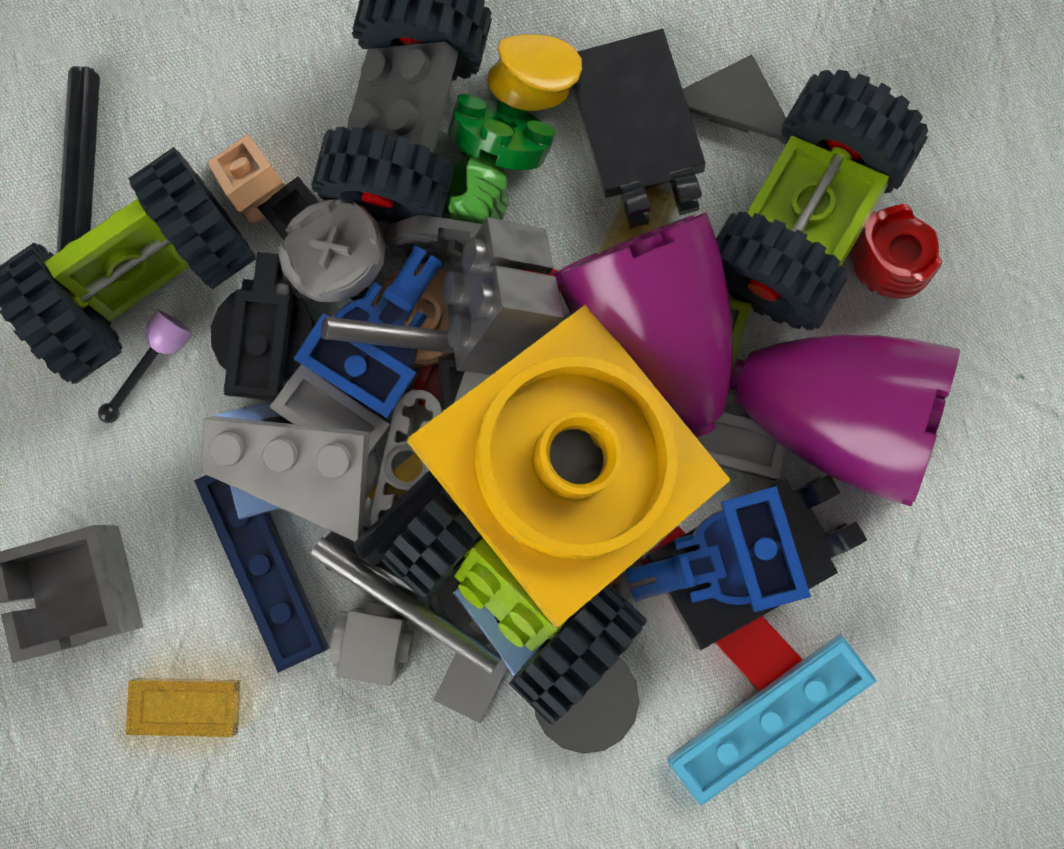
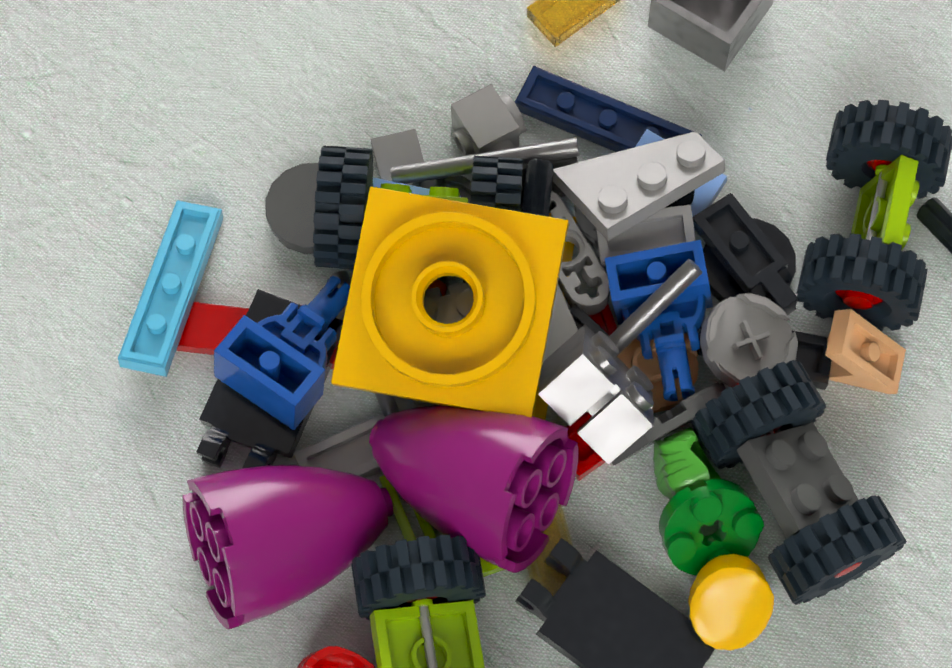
camera: 140 degrees right, 15 degrees down
(164, 336) = (812, 209): hinge -> none

